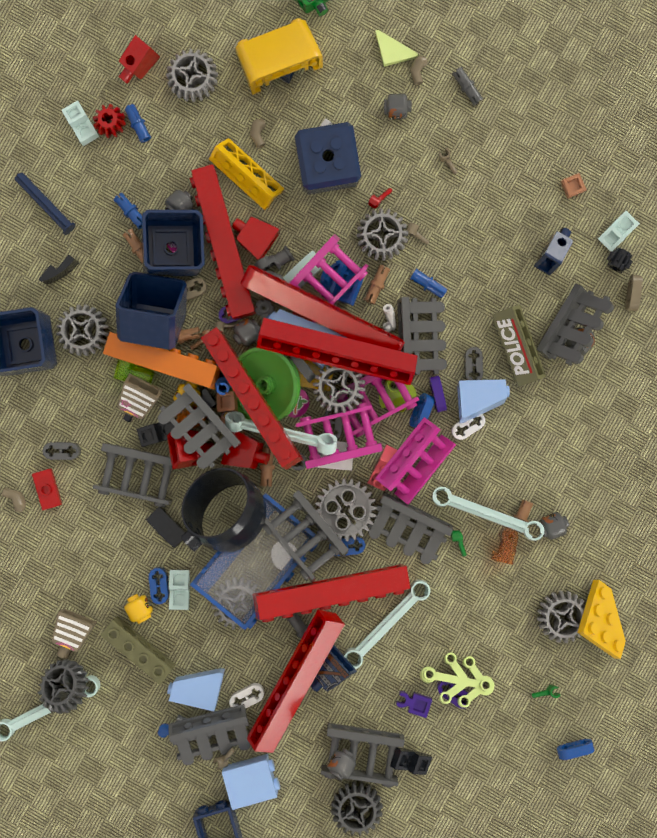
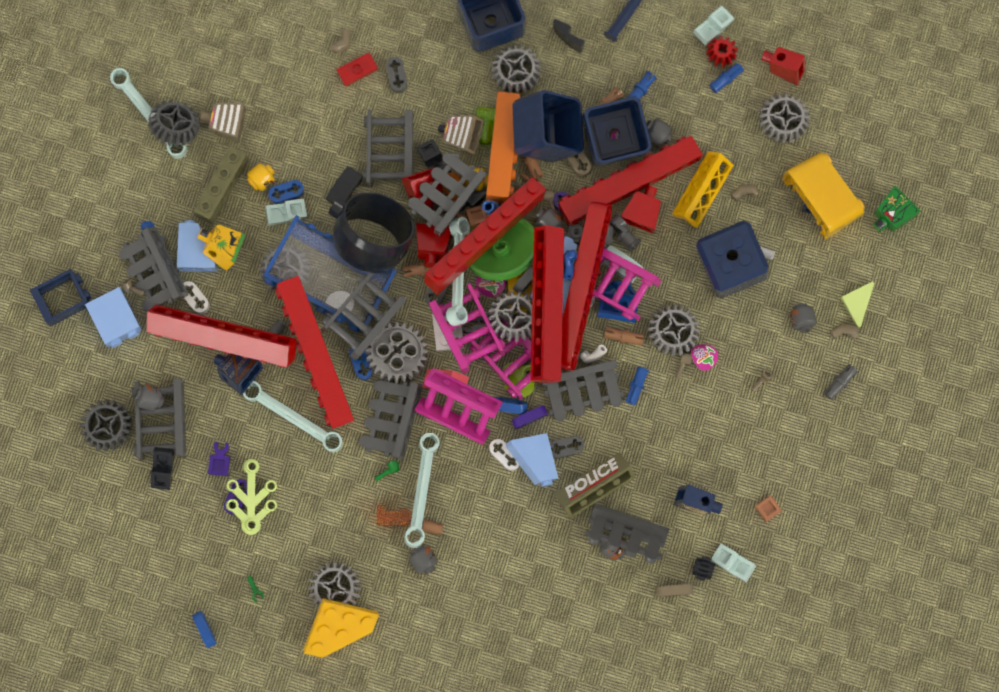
camera: 80 degrees right, 10 degrees down
(201, 662) = (221, 245): none -> yellow torso
(293, 319) = (569, 256): none -> blue arm
(374, 201) = (705, 318): red hand -> none
(413, 211) = (704, 356): none -> sticker

